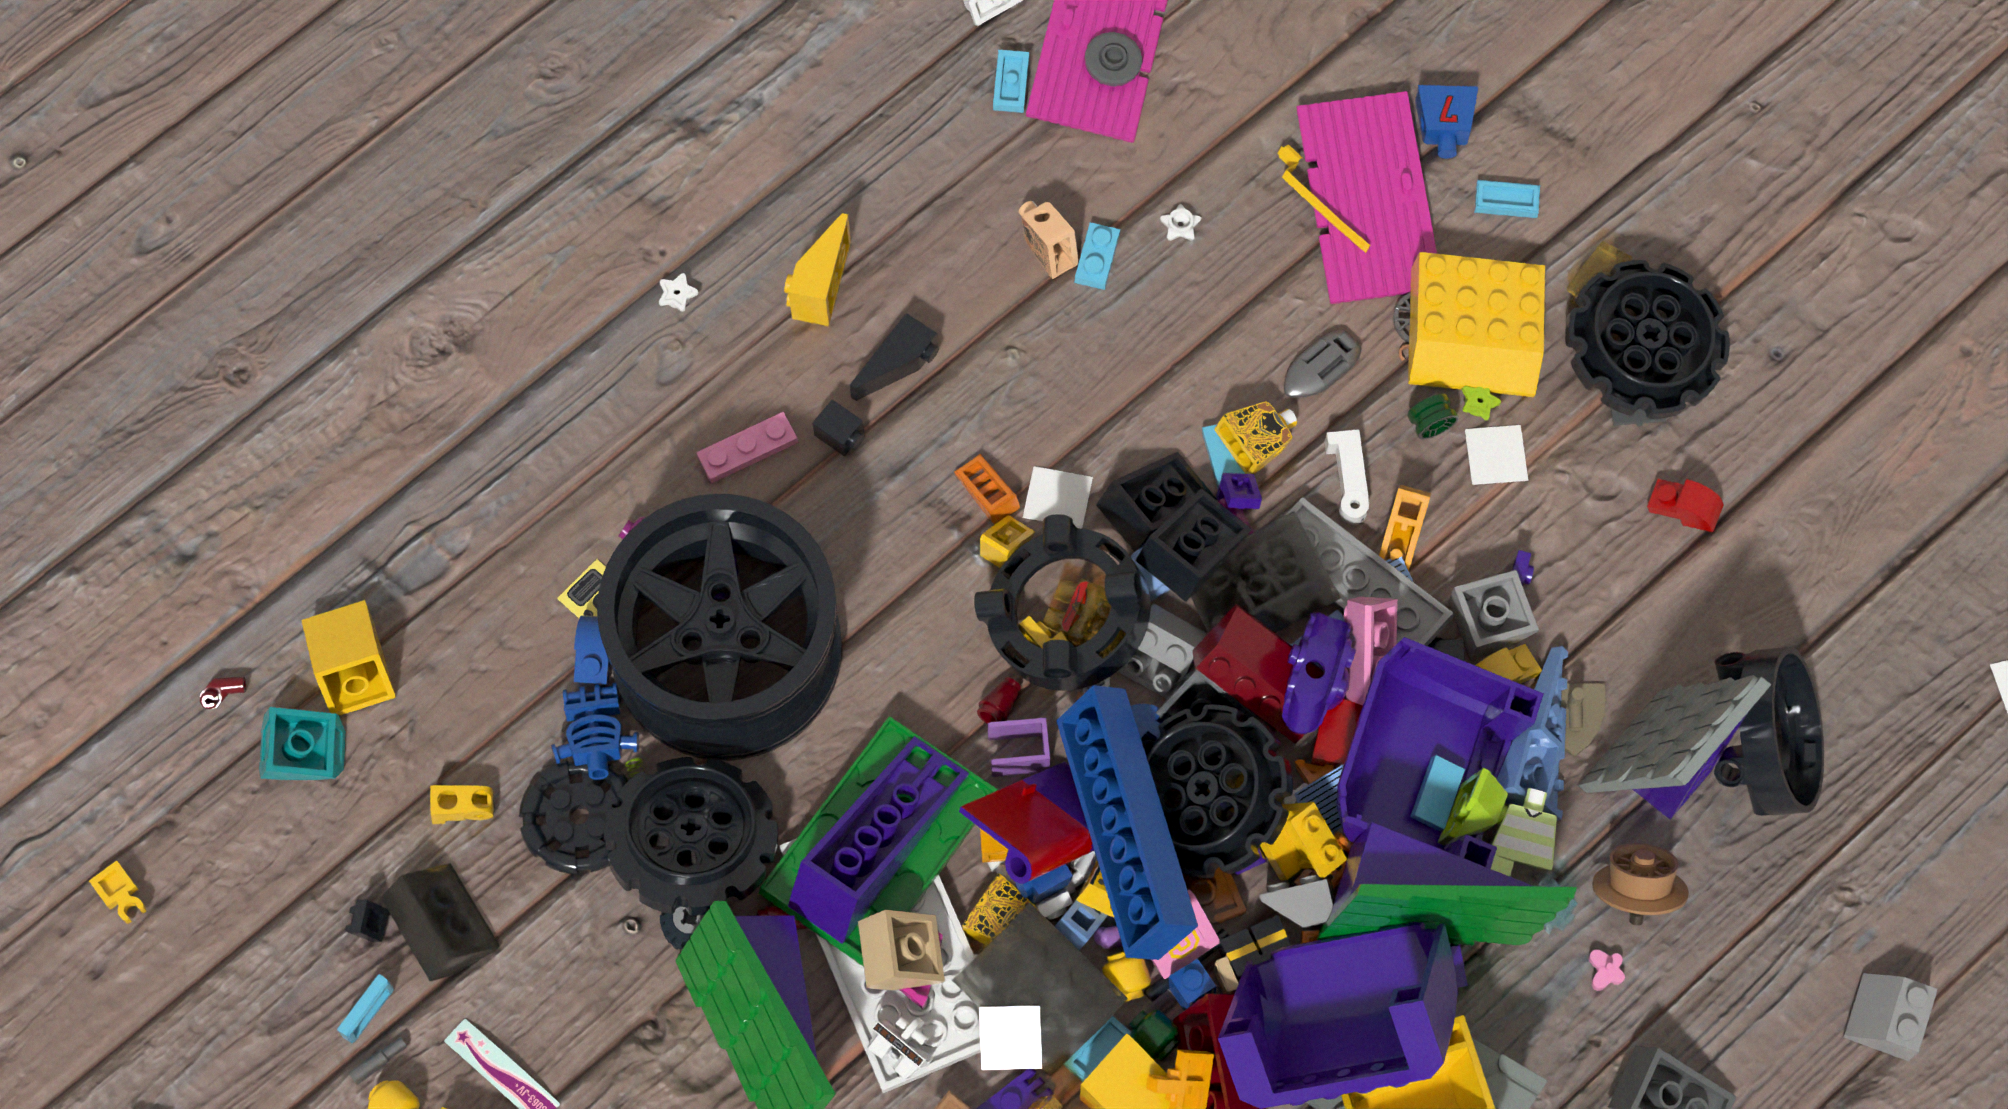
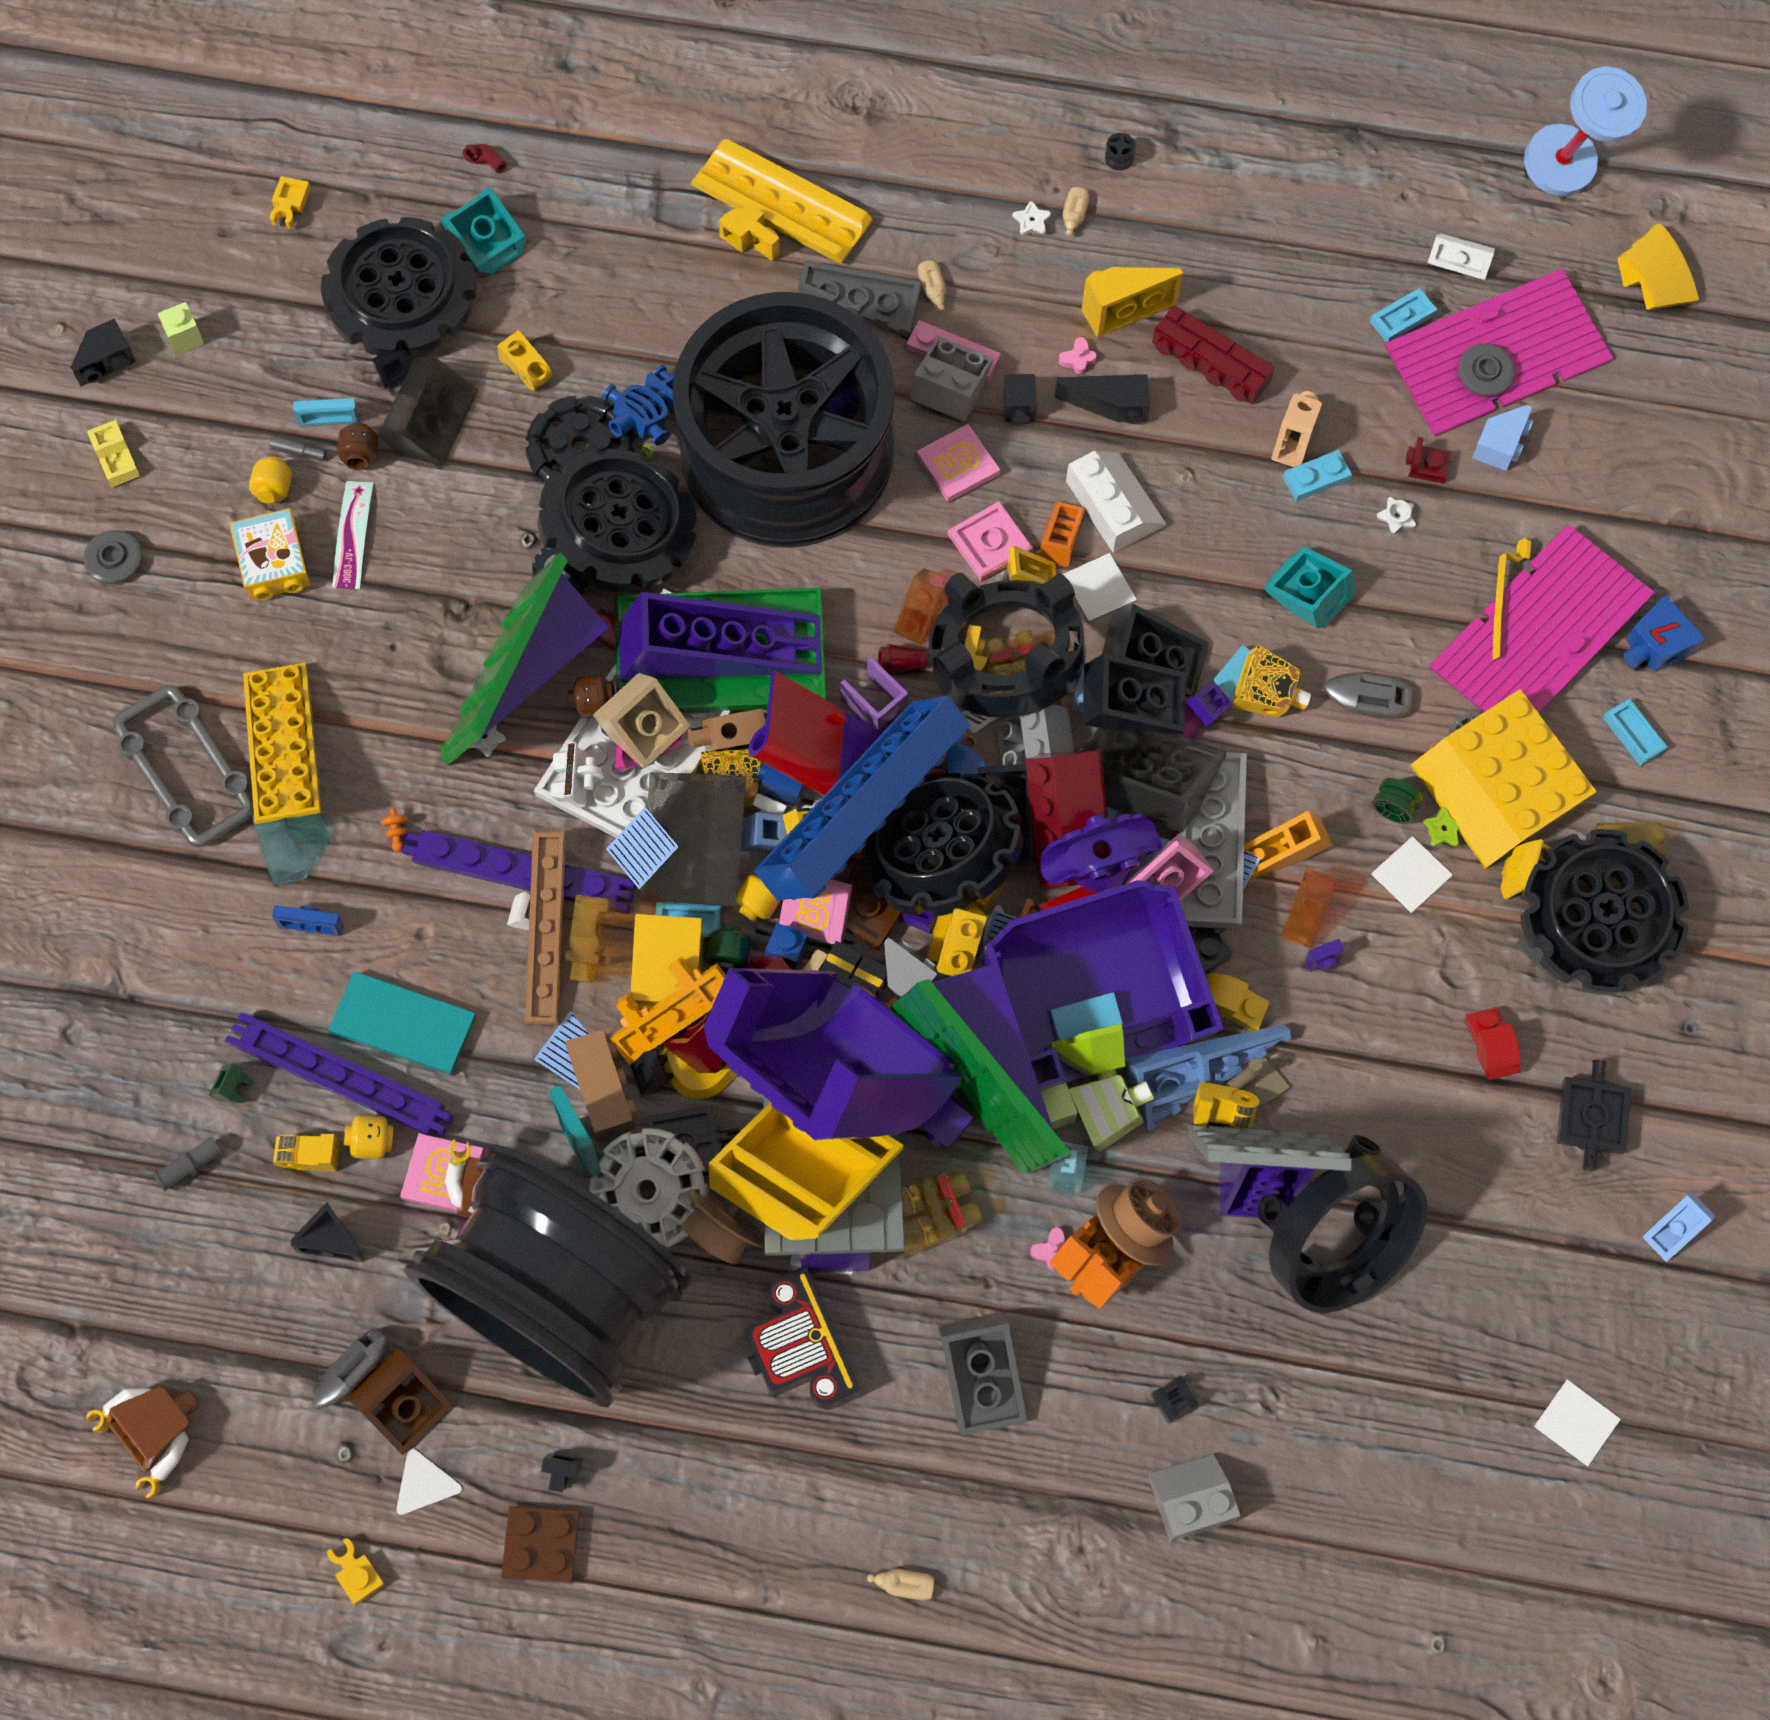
camera: 50 degrees right, 0 degrees up
(171, 1078) = (180, 328): none -> yellowish green brick
(331, 897) = (399, 286): none -> black piece
(348, 658) = (570, 213): yellow slope -> none
(424, 1005) = (357, 446): none -> reddish brown head
(484, 477) = (787, 200): none -> yellow plate
(487, 525) = (747, 228): none -> yellow brick
(636, 476) = (869, 295): none -> dark grey wing
(669, 415) = (932, 282): none -> tan piece
(674, 168) = (1120, 151): none -> black wheel
(696, 251) = (1075, 208): none -> tan piece
(776, 466) = (950, 378): none -> light grey slope
(836, 354) = (1078, 357): none -> bright pink piece
(840, 976) = (590, 694): none -> reddish brown head
(854, 521) = (958, 463): none -> bright pink tile
(926, 250) = (1212, 355): none -> dark red brick
(947, 550) = (986, 540): none -> bright pink tile
(966, 647) = (921, 605): none -> clear orange slope
(966, 884) = (736, 730): none -> medium nougat torso
(991, 426) = (1113, 498): none -> white slope
(1155, 165) = (1427, 462): none -> dark red bracket
(1182, 95) = (1501, 437): none -> light blue slope
(1193, 336) = (1312, 586): none -> teal slope
(1351, 474) = (1279, 794): white leg -> none
(1468, 549) = (1308, 908): none -> clear orange slope
(1492, 614) = (1269, 956): light grey slope -> none
(1510, 1030) = (933, 1213): none -> clear yellow hips
(1562, 370) = (1519, 866): none -> yellow piece
(1588, 745) = (1224, 1106): none -> yellow leg
(1652, 943) = (1094, 1264): none -> orange brick
(1798, 969) = (1174, 1399): none -> black tile
(1799, 478) = (1594, 1115): none -> black plate
(1934, 487) = (1679, 1226): none -> light blue slope

